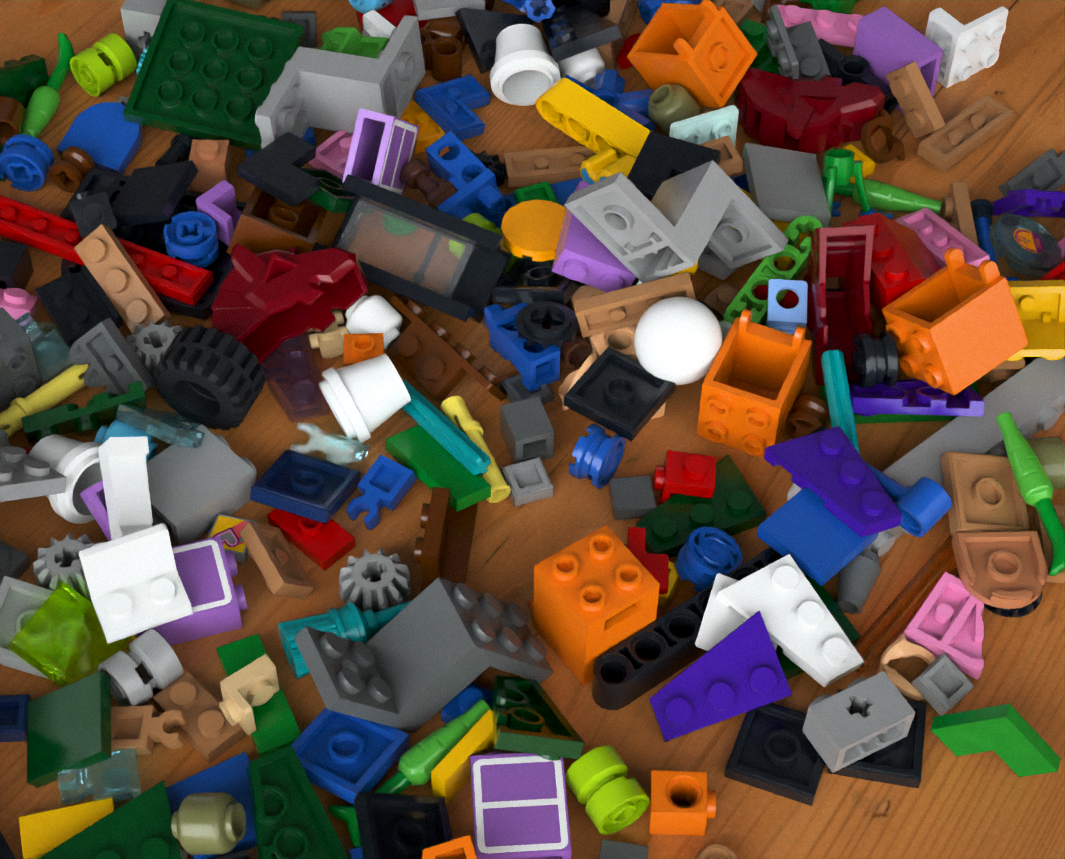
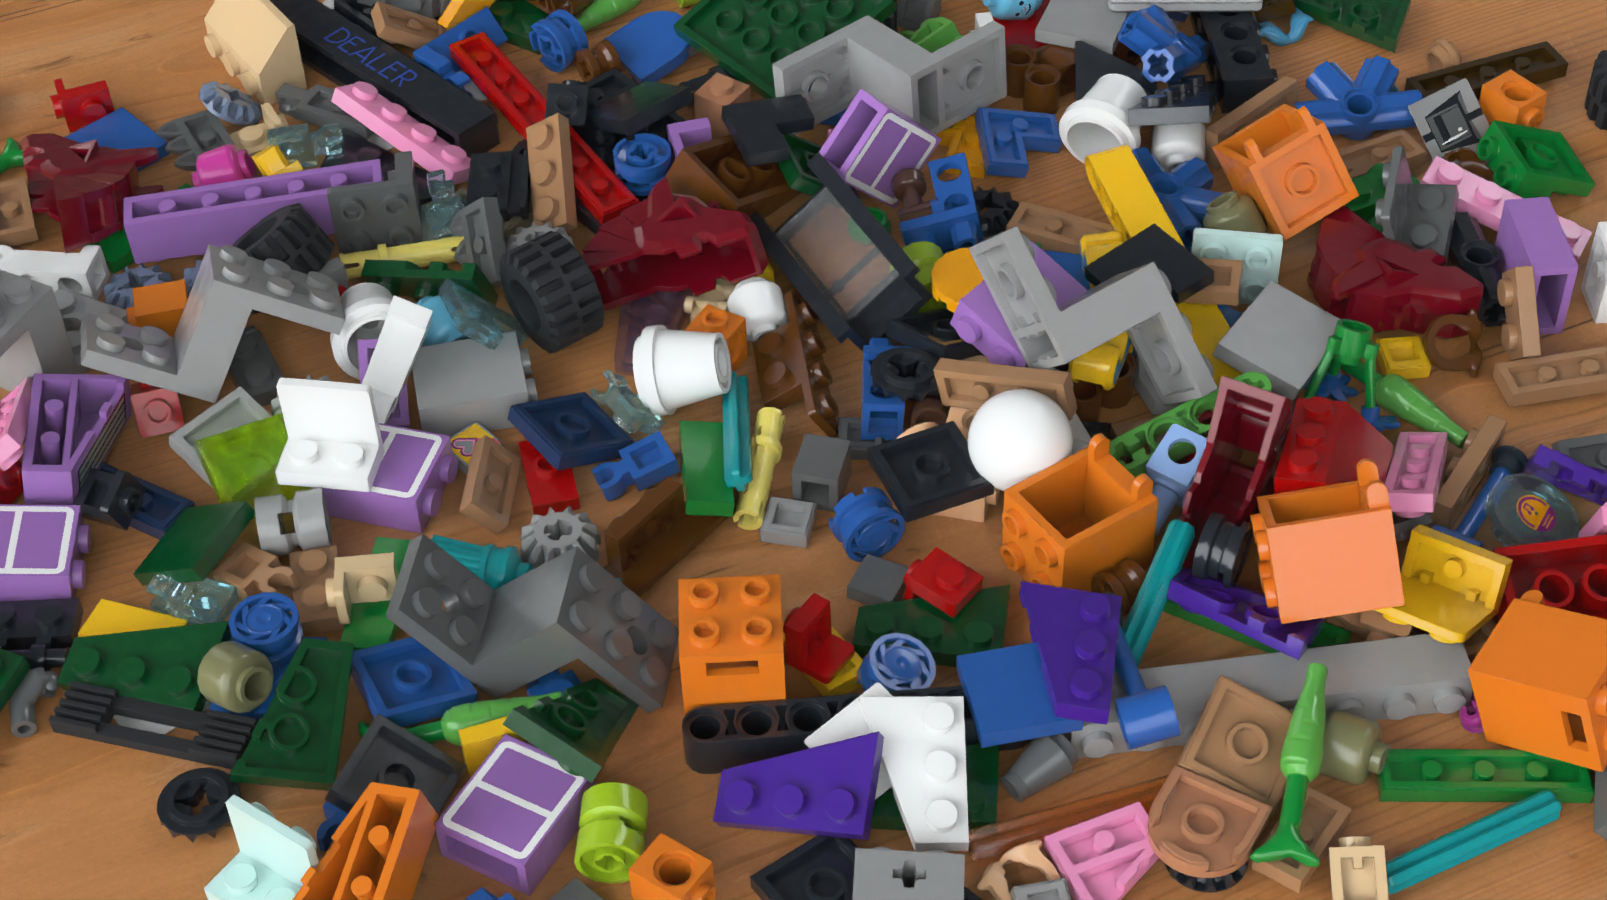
camera: 35 degrees right, 5 degrees down
(198, 767) = (268, 626): none -> blue wheel

